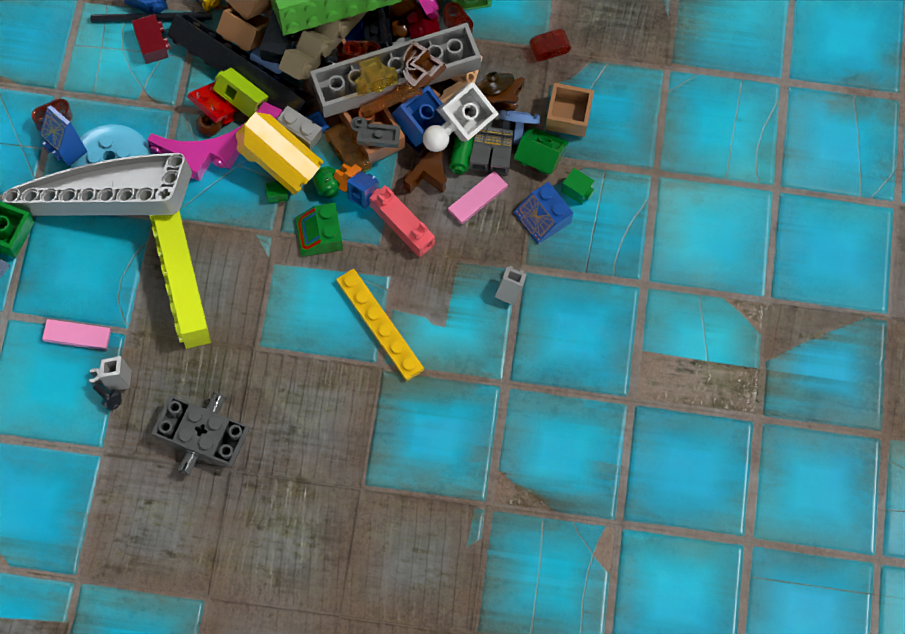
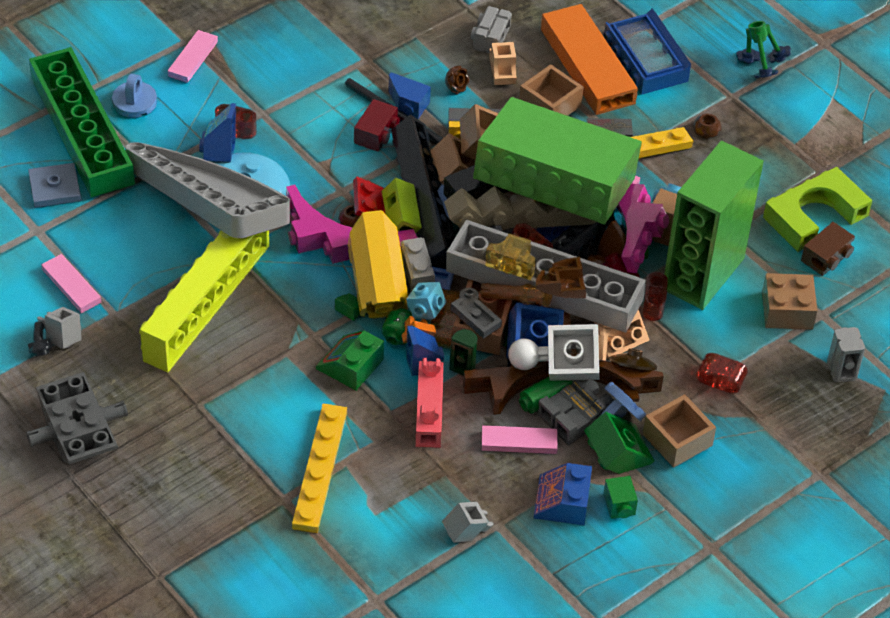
camera: 45 degrees right, 20 degrees down
(334, 150) = (426, 300): none -> medium azure brick
(391, 167) = (463, 351): none -> dark green brick

